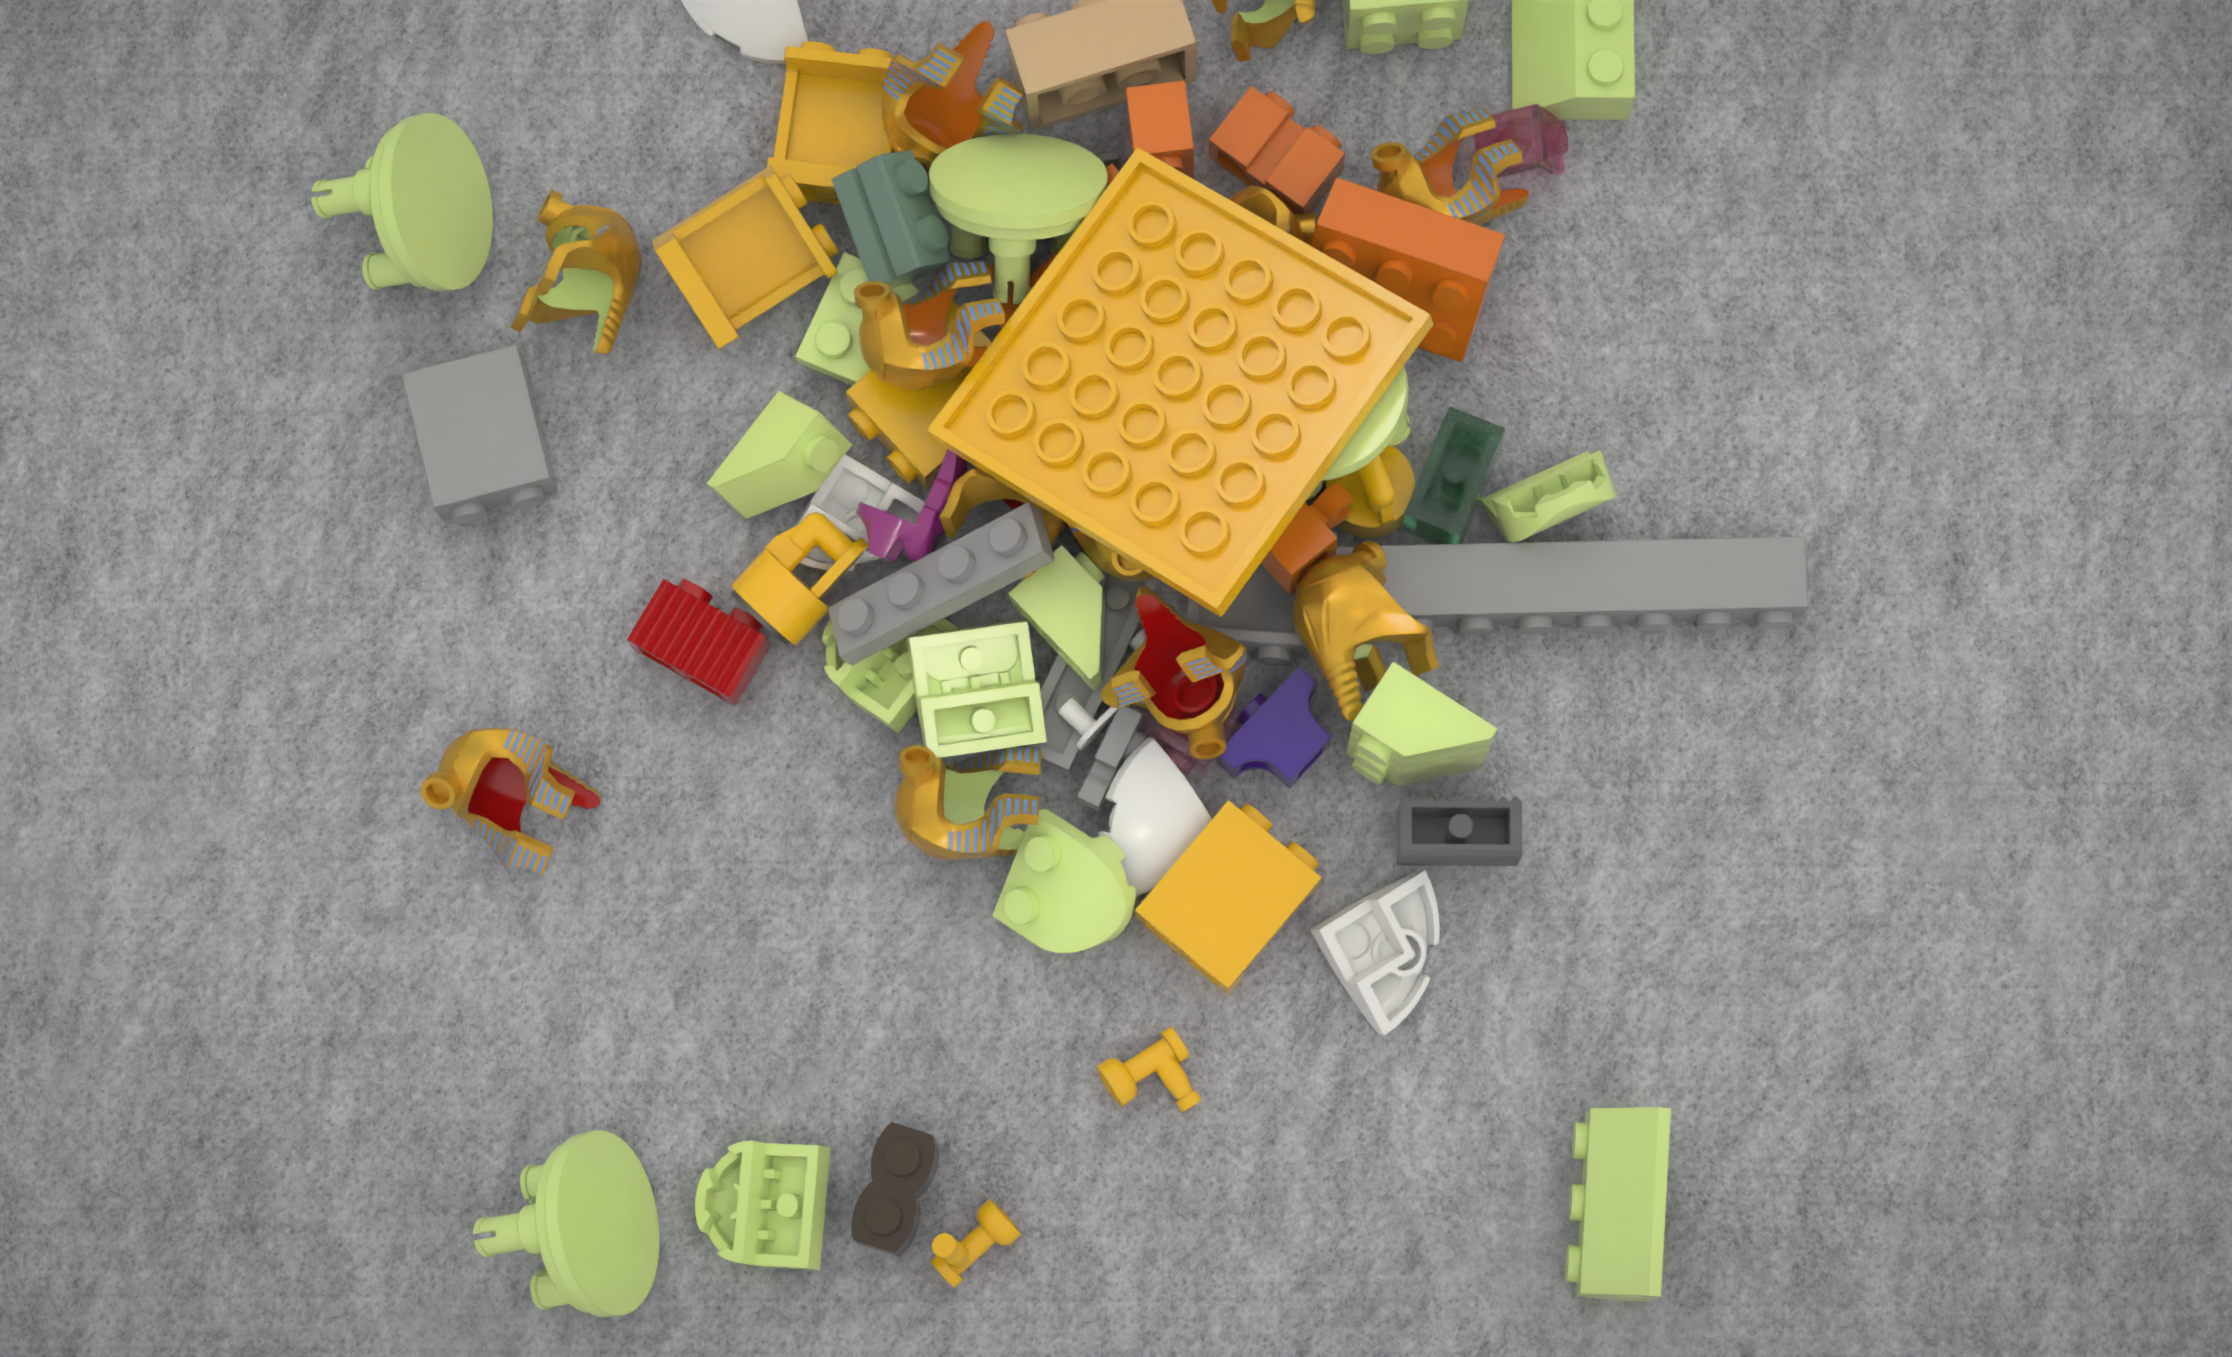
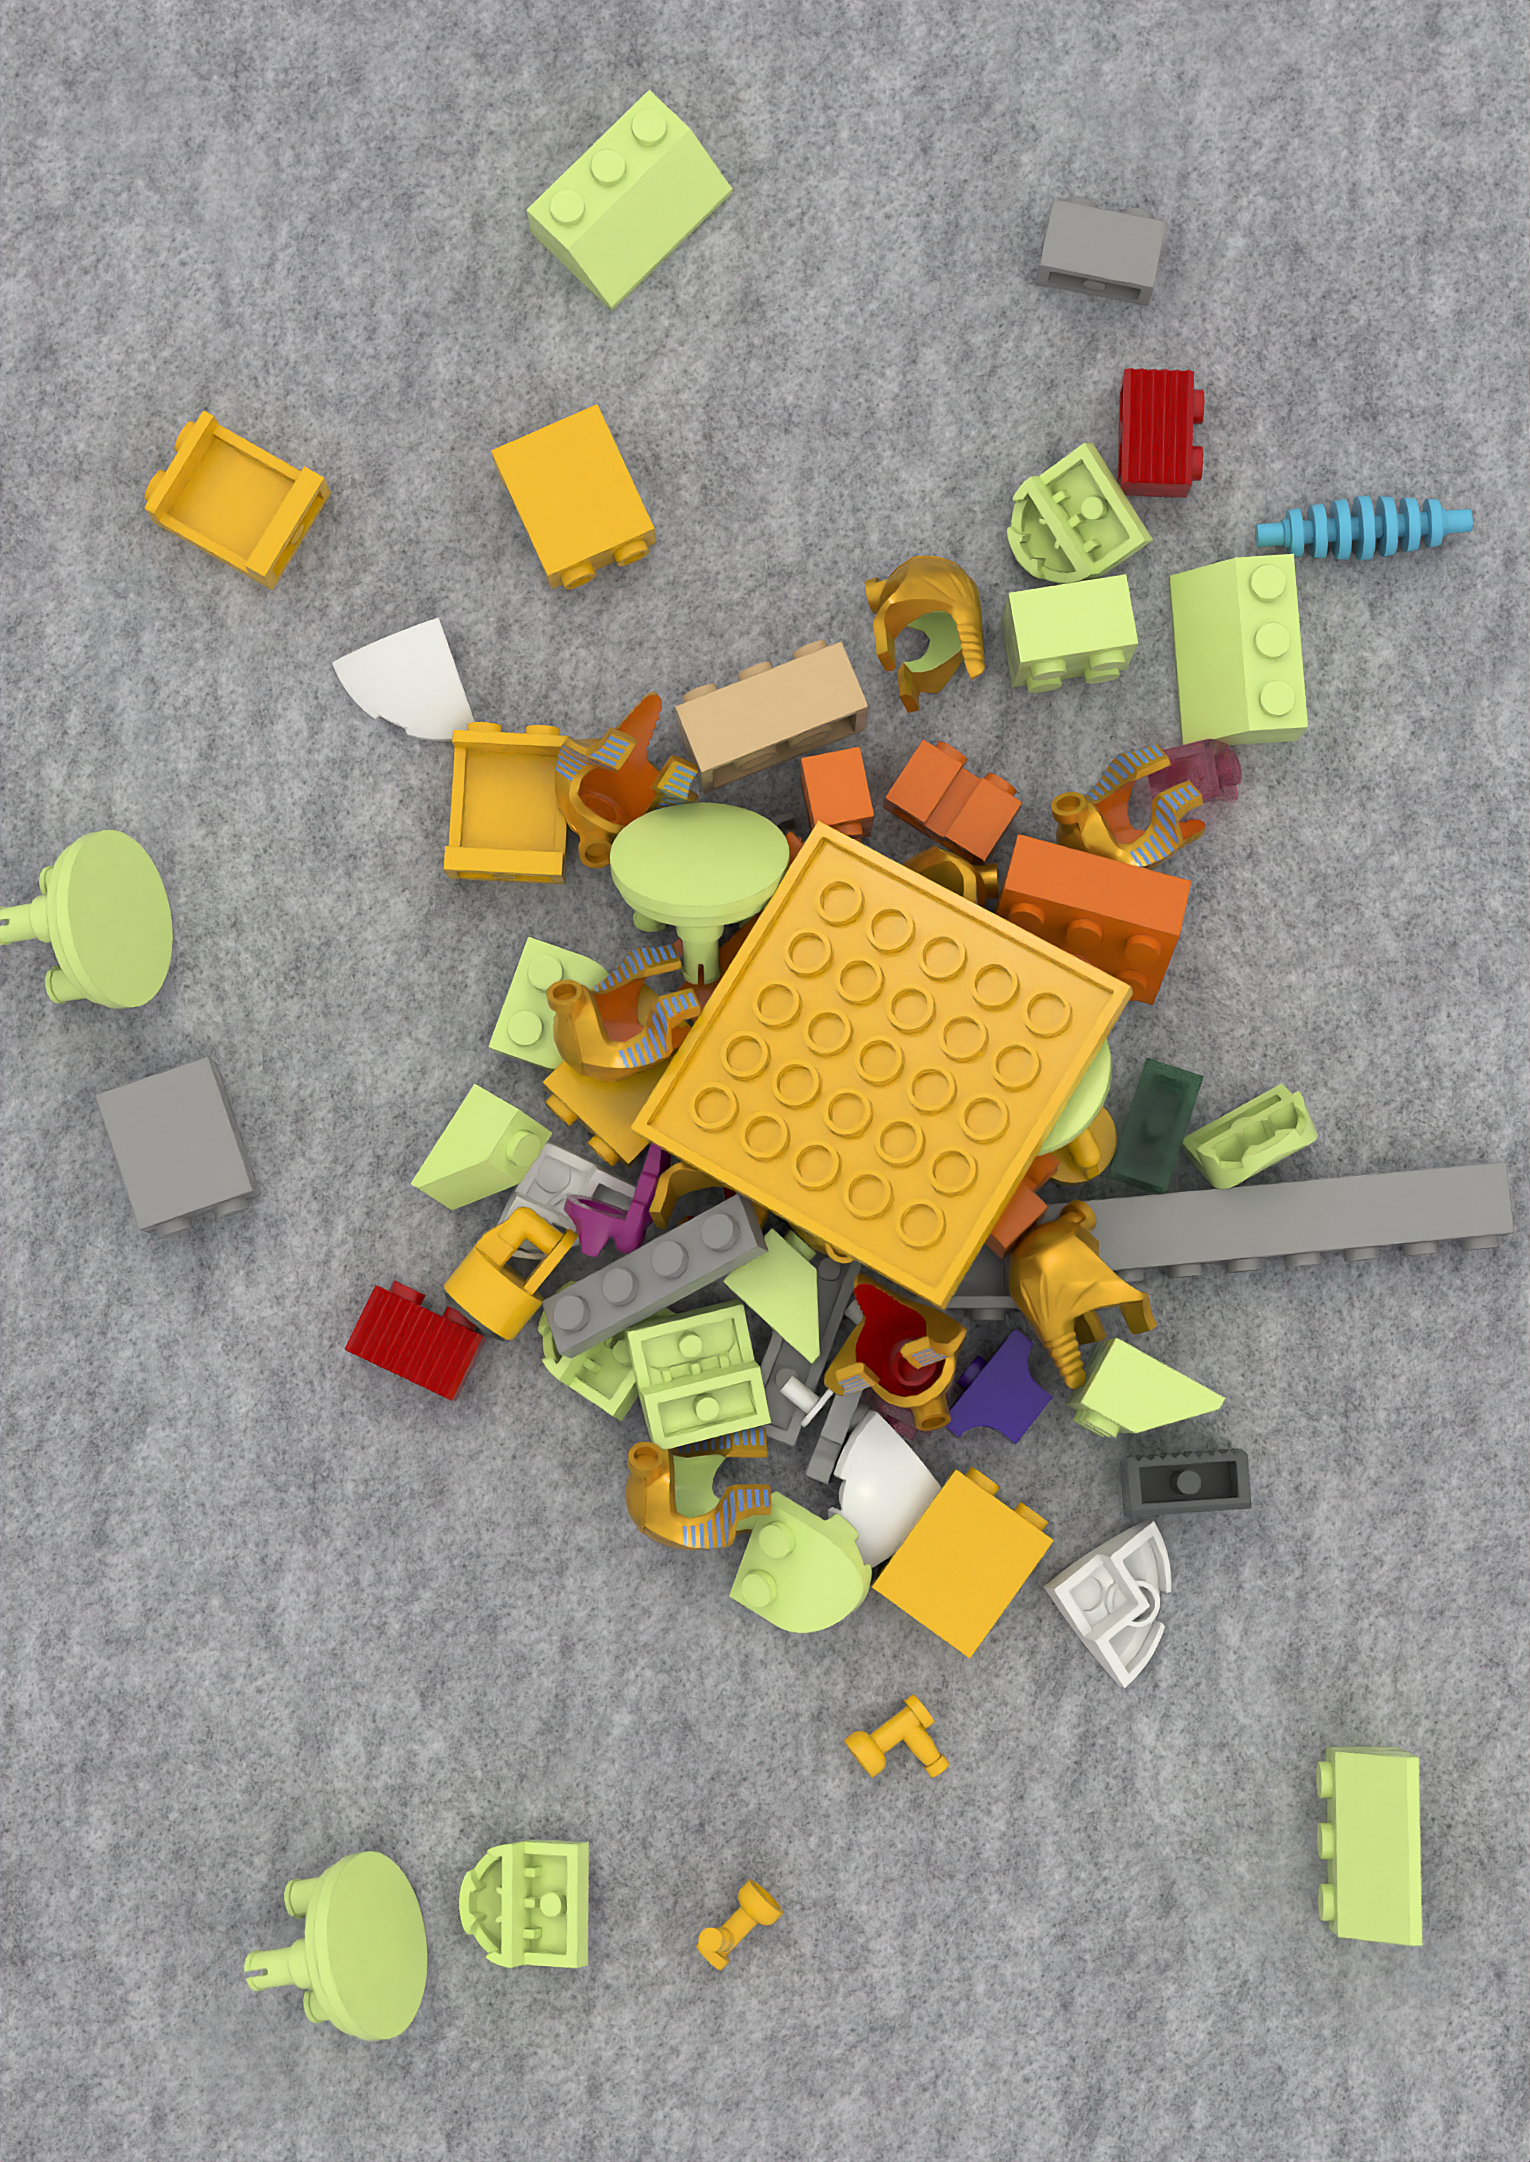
camera: 10 degrees left, 5 degrees up
(489, 780) = (217, 1501): piece -> none
(597, 266) = (277, 974): pearl gold piece -> none
(745, 253) = (429, 946): yellow panel -> none
(893, 219) = (576, 907): sand green brick -> none
(901, 1172) = (653, 1894): dark brown brick -> none

